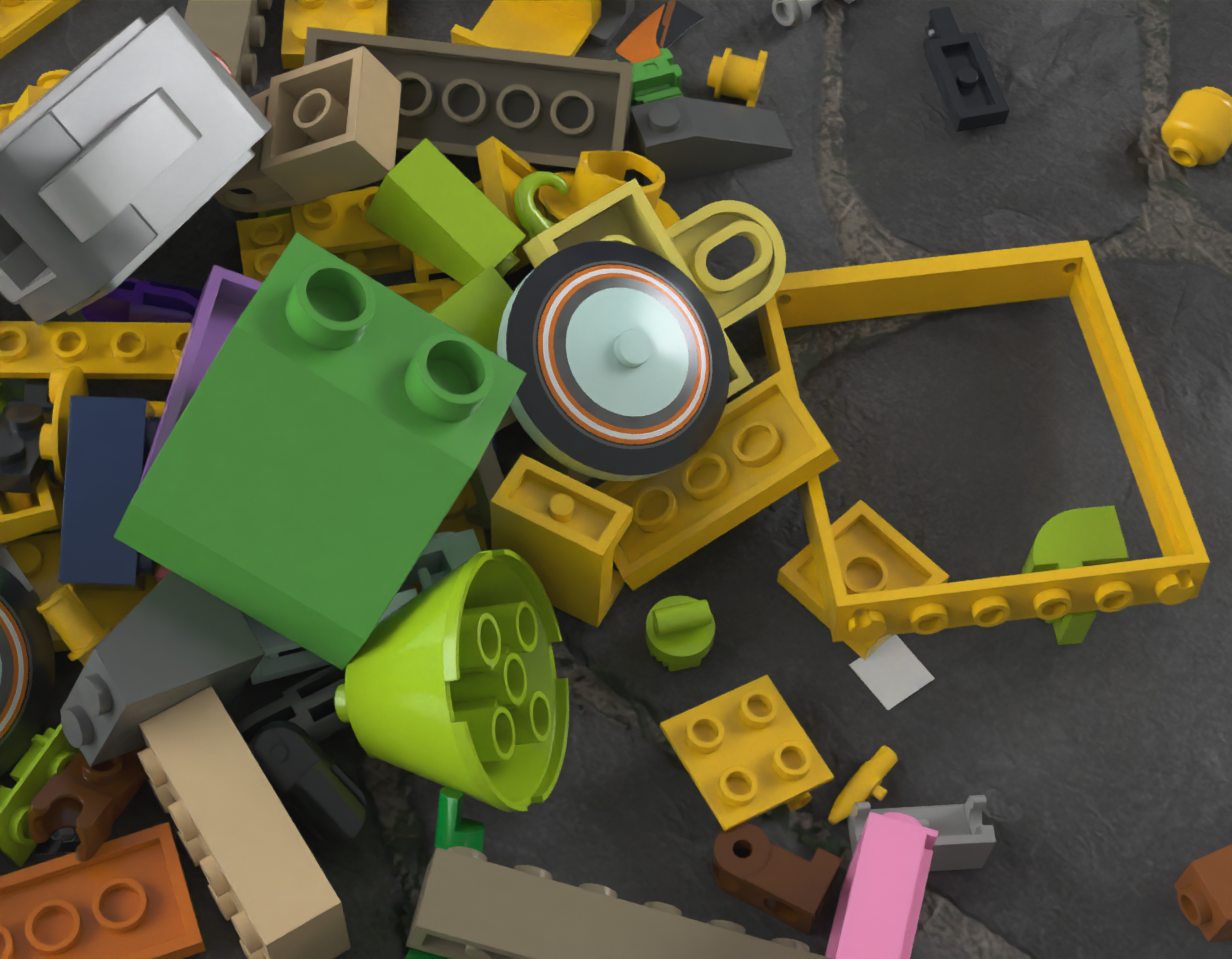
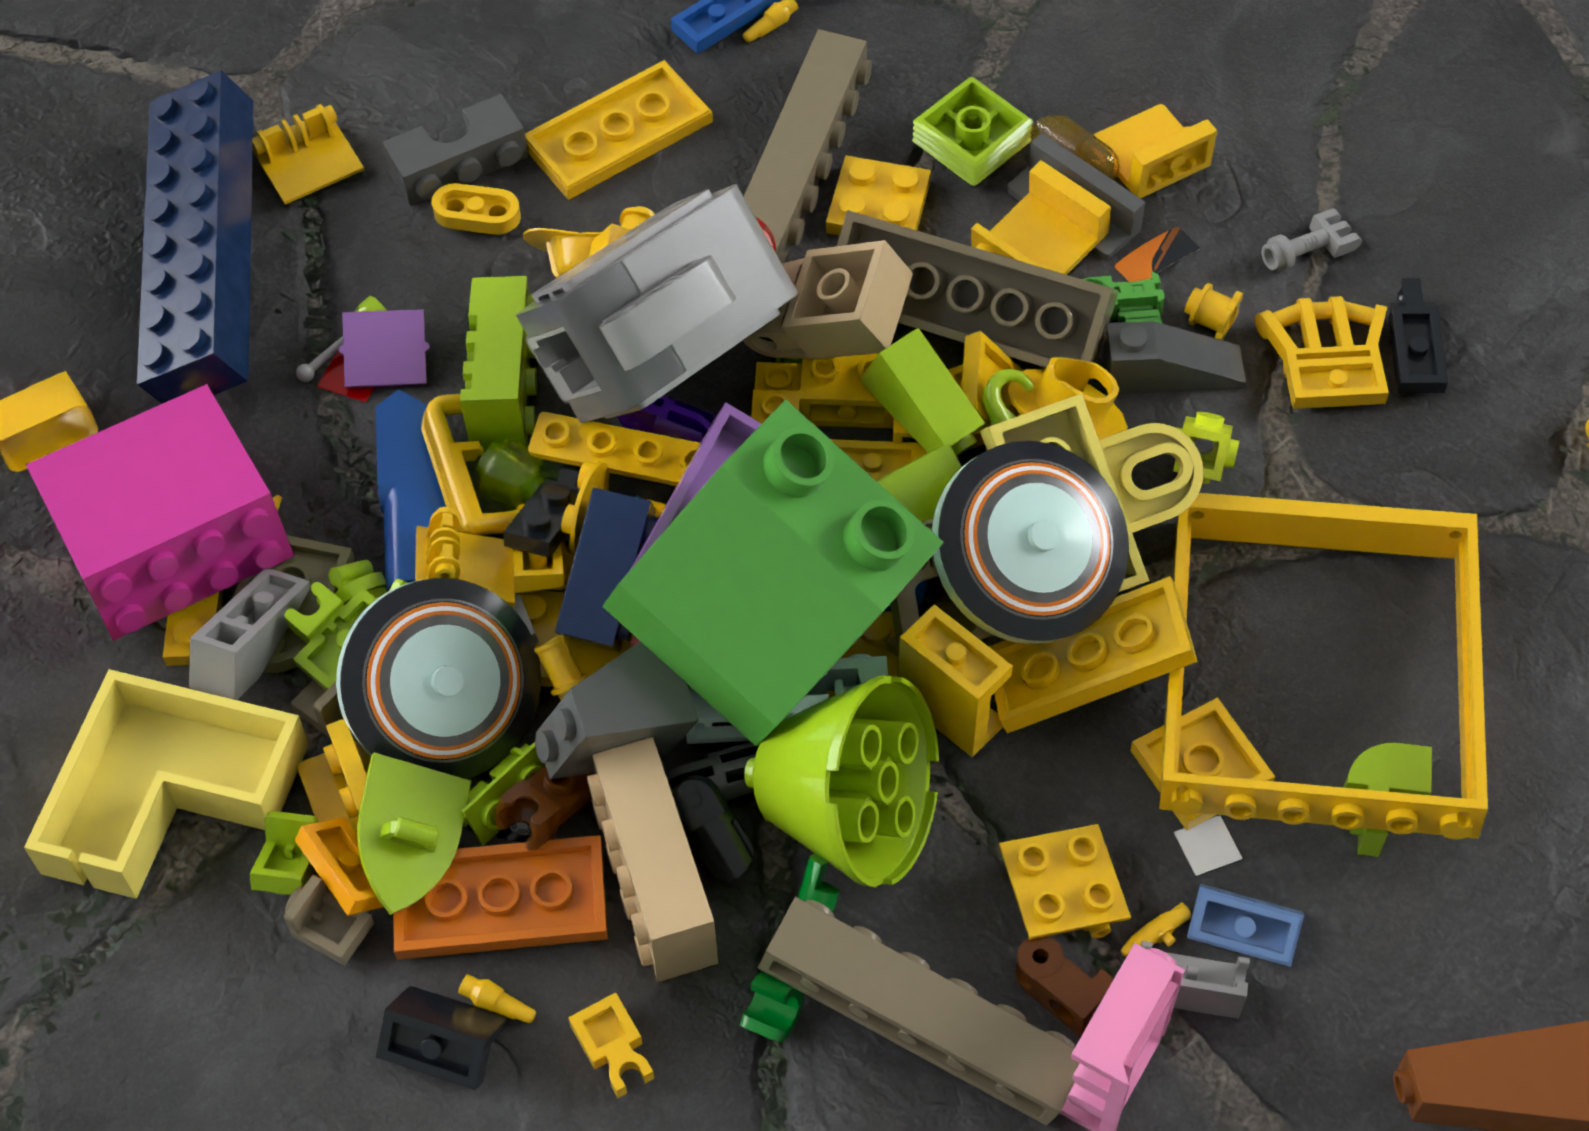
camera: 20 degrees right, 0 degrees up
(680, 631) = (1037, 774): lime piece -> none
(790, 218) = (1224, 452): none -> neon yellow brick
(878, 124) = (1334, 374): none -> yellow plate
(960, 755) = (1245, 925): none -> medium blue slope

